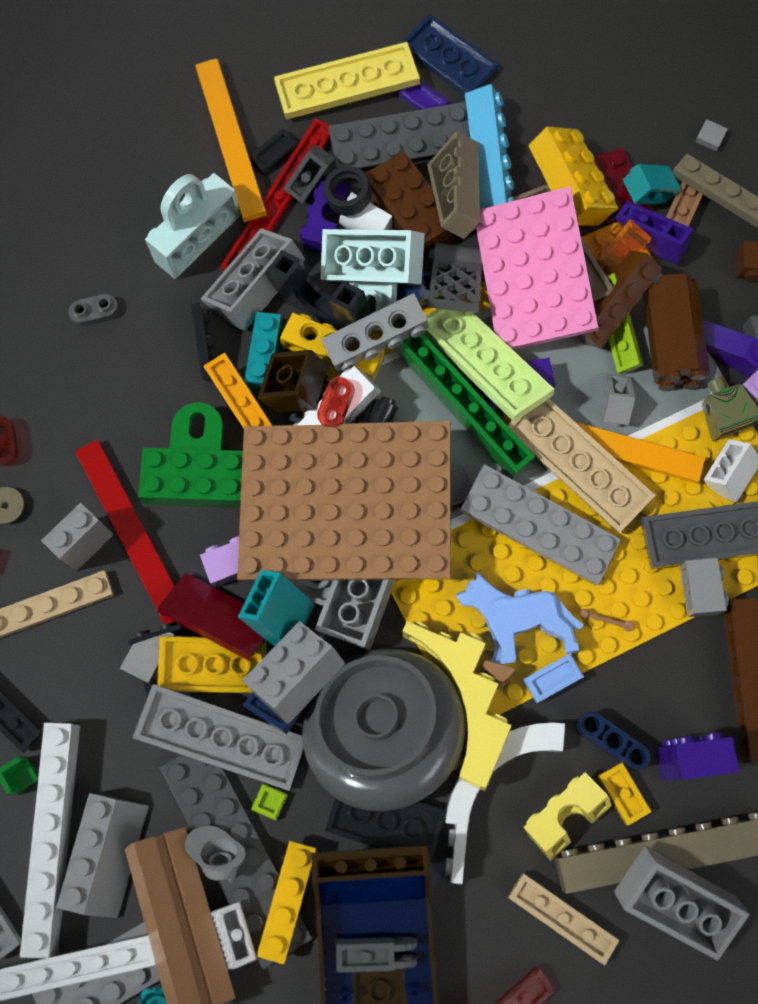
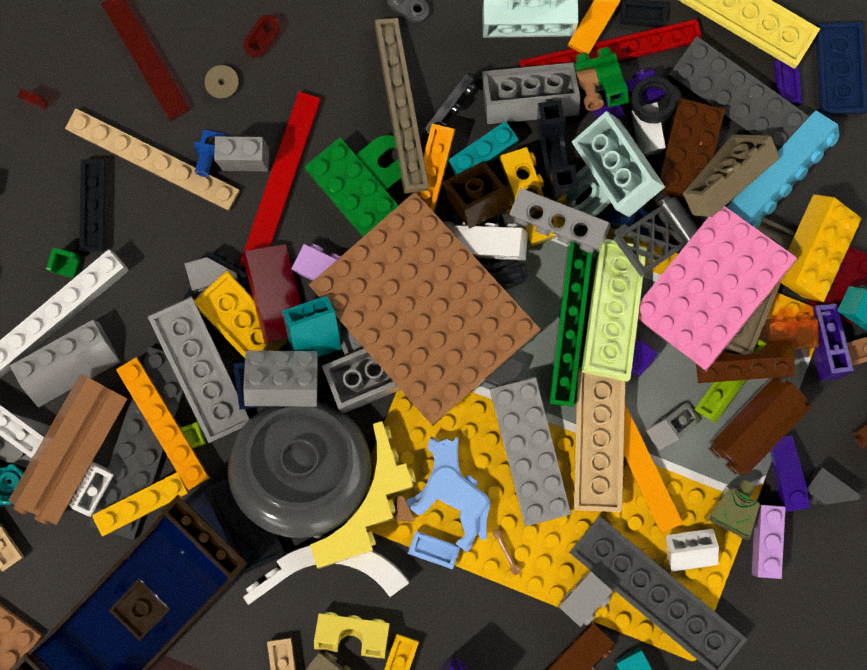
camera: 50 degrees right, 10 degrees up
(48, 568) = (205, 153): none -> blue bracket
(167, 379) = (401, 105): none -> dark tan plate
(215, 852) = (128, 432): light grey piece -> none
(236, 815) = (162, 423): none -> light orange plate
(290, 209) = (601, 72): none -> green hips
(308, 173) = (646, 57): dark grey slope -> none
(335, 402) = (485, 238): clear red plate -> none
(374, 954) = (157, 587): dark grey hinge -> none
(625, 742) = (426, 636): dark blue beam -> none

